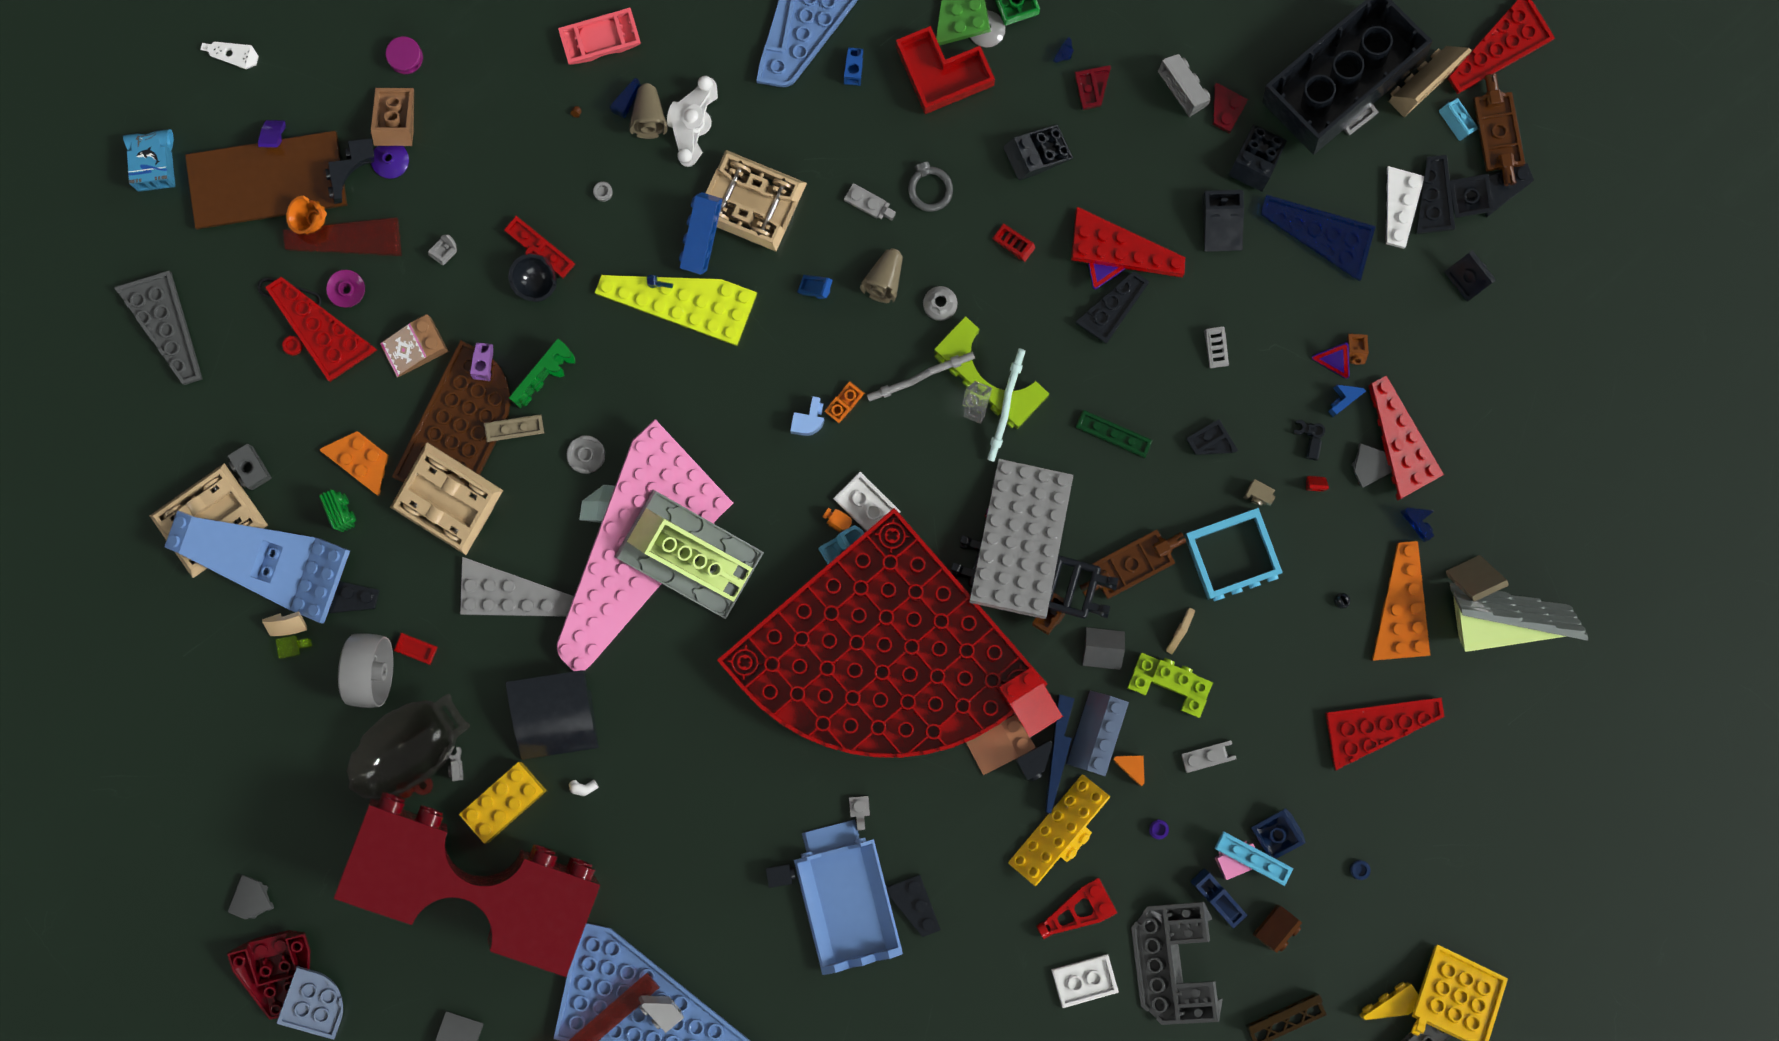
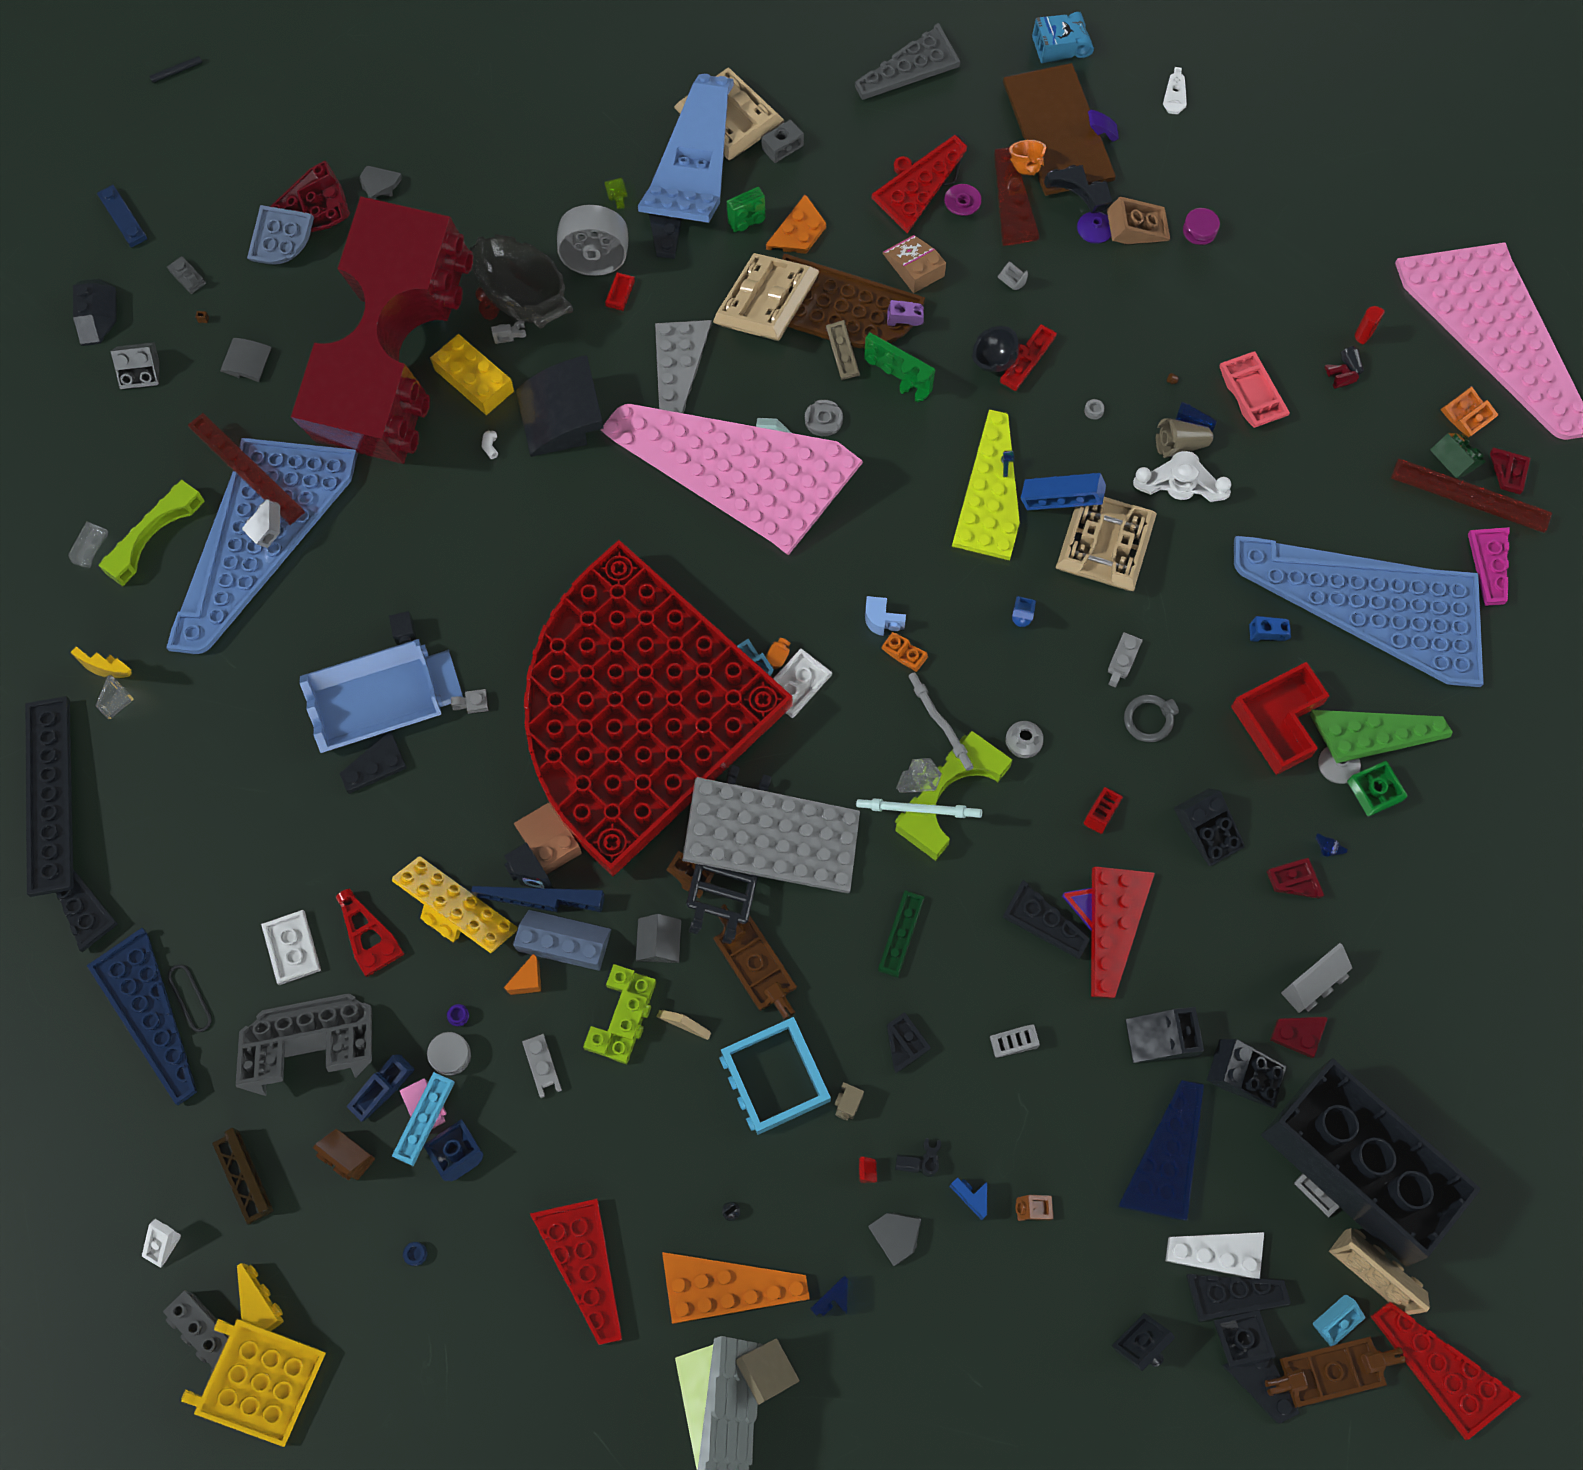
camera: 90 degrees right, 15 degrees down
(286, 625) = (635, 182): tan slope -> none
(689, 554) = (728, 513): piece -> none
(884, 277) = (1045, 676): dark tan cone -> none
(1030, 701) = (589, 848): slope -> none
(1193, 837) = (449, 1053): none -> light grey head
(1335, 359) = (1018, 1181): piece -> none
(1403, 444) = (921, 1274): wing -> none

